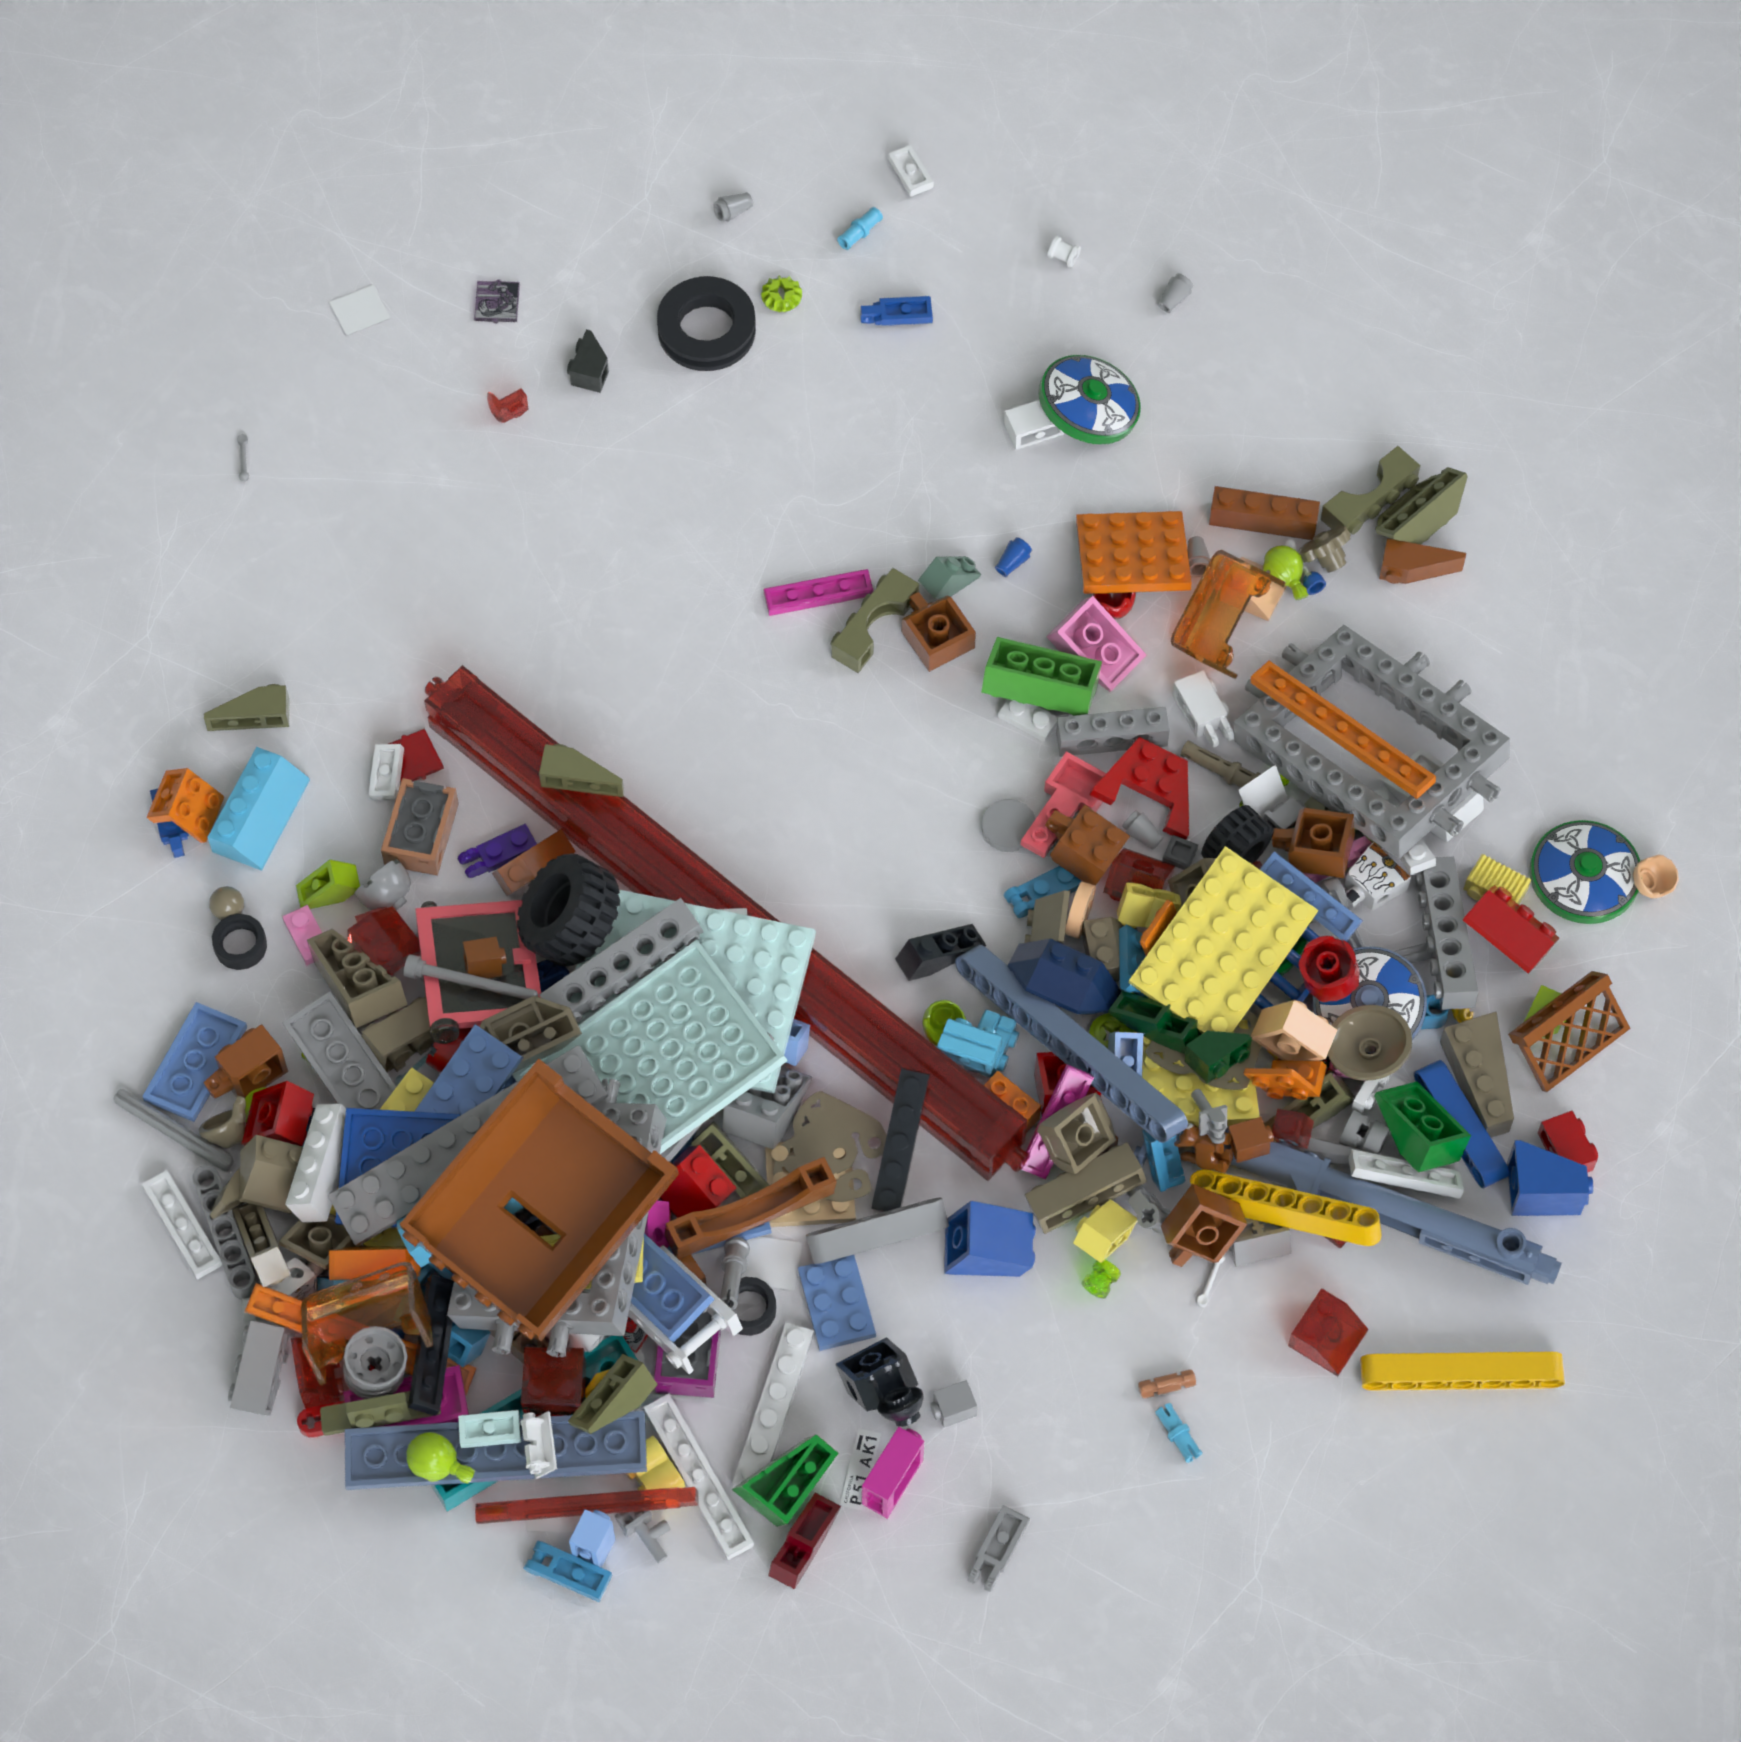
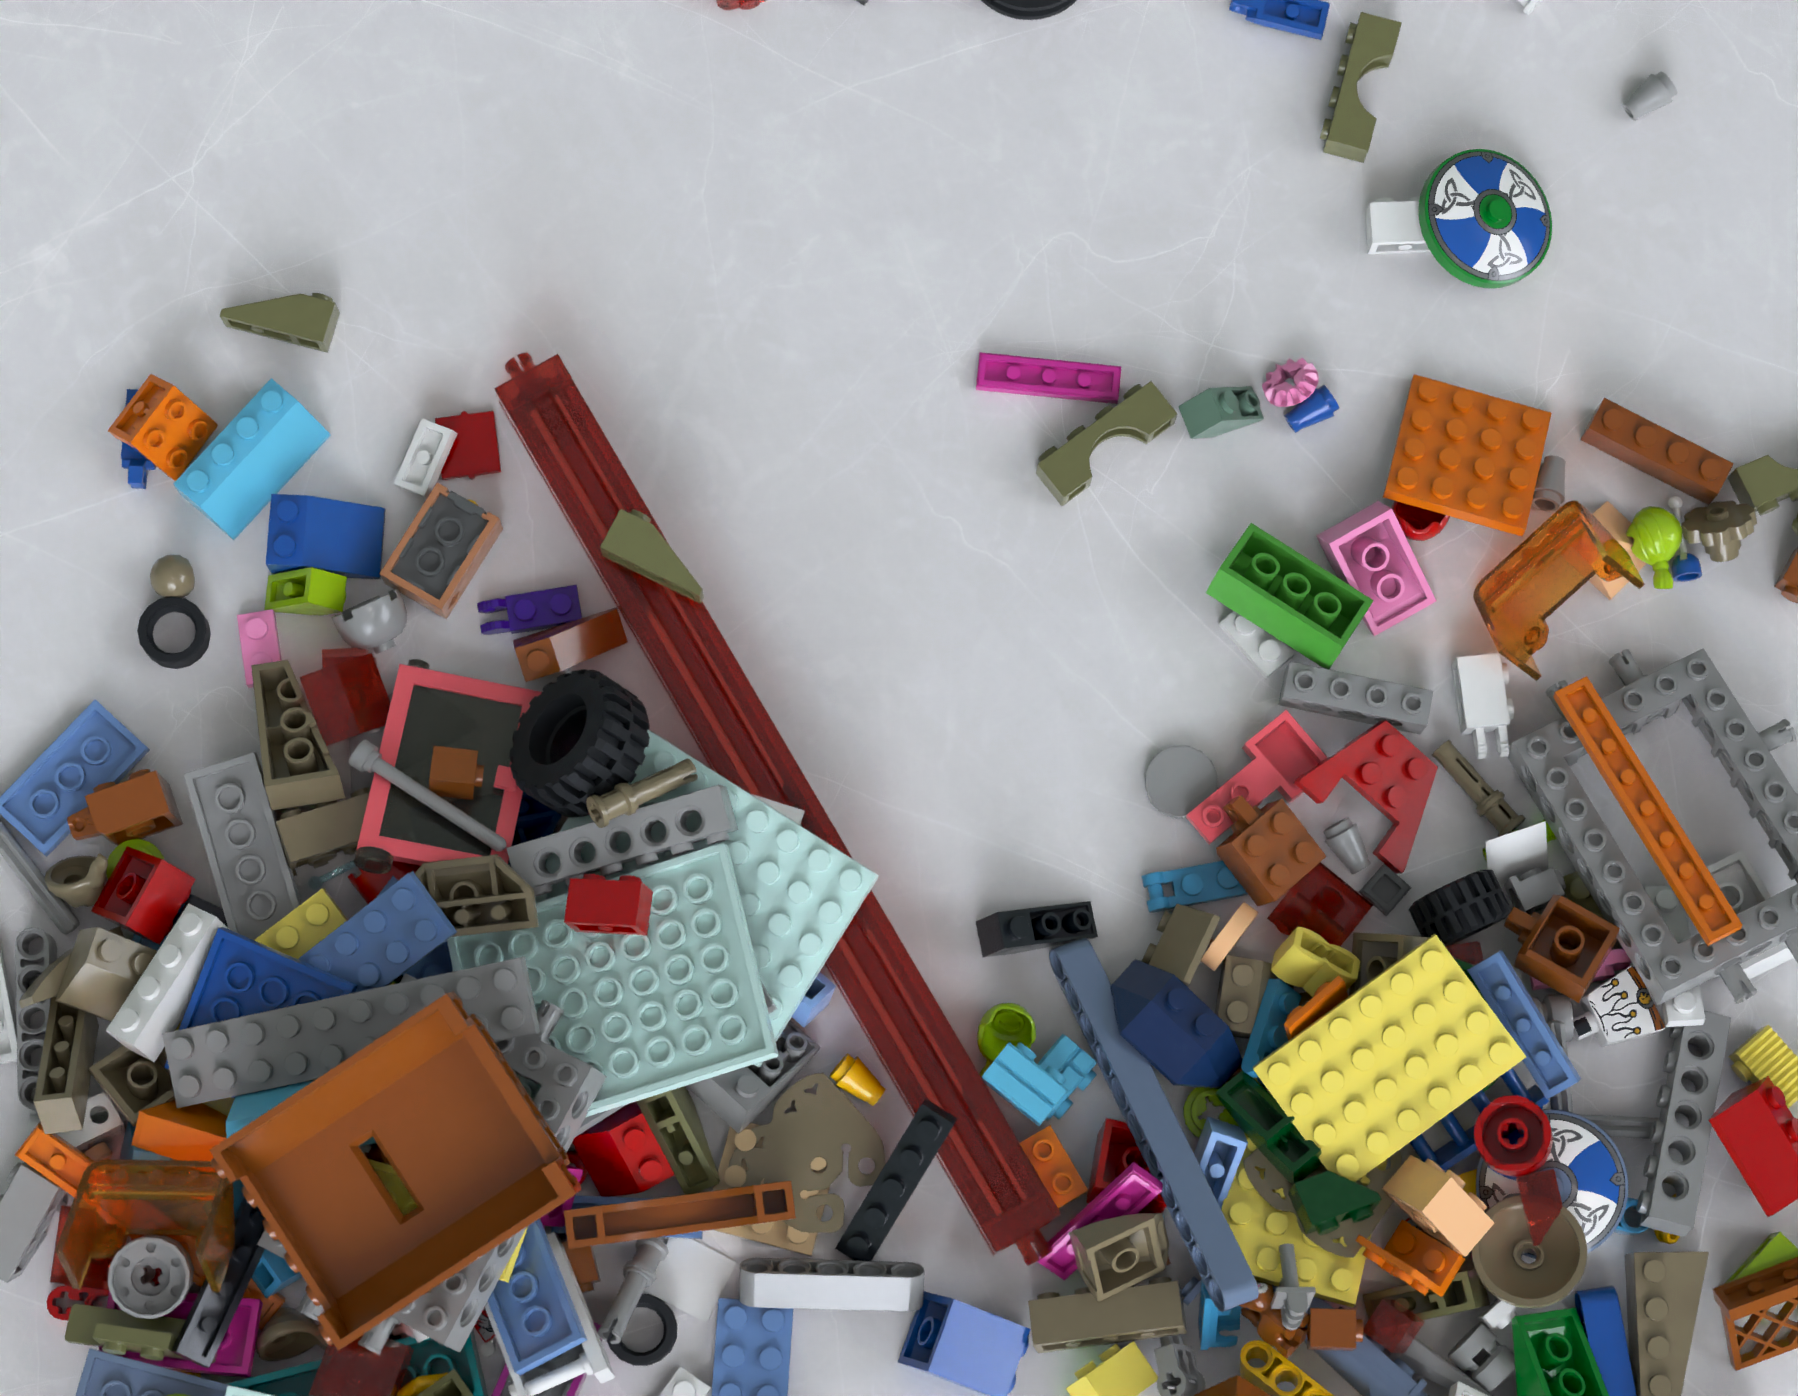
camera: 15 degrees right, 15 degrees up
(321, 838) = (325, 536): none -> blue slope
(489, 1388) = (288, 1335): none -> dark tan hat
(618, 926) = (627, 798): none -> dark tan pin
(628, 1006) = (608, 905): none -> red brick
(847, 1089) = (857, 1079): none -> yellow cone
(937, 631) = (1179, 465): dark orange hinge -> none
(973, 367) = (1351, 125): none -> olive arch
(986, 549) = (1284, 394): none -> bright pink gear
(1363, 1006) = (1540, 1202): none -> clear red slope

